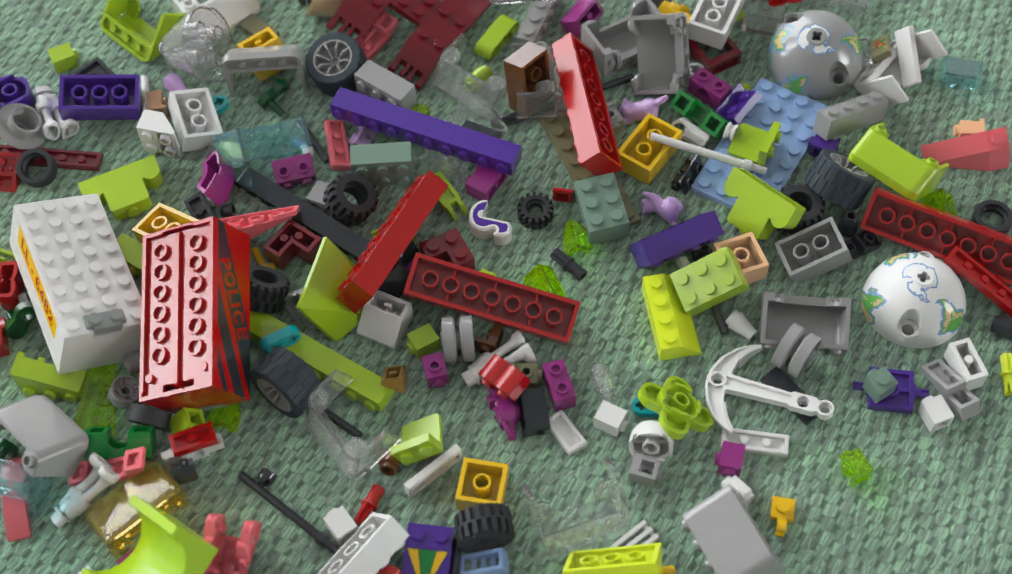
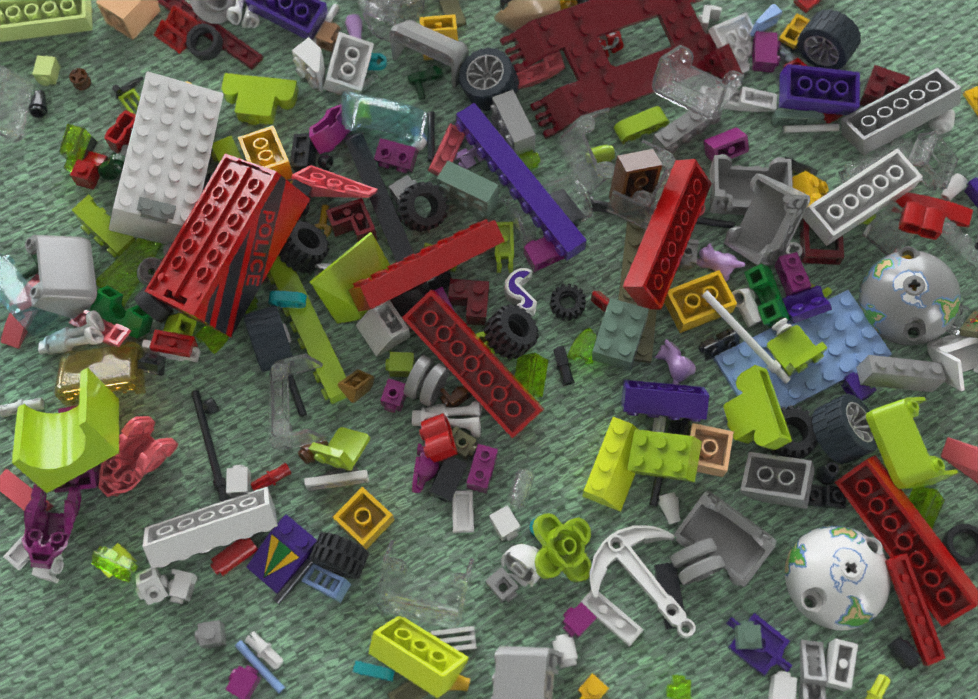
camera: 30 degrees right, 10 degrees up
(505, 256) = (511, 331): none -> black tyre

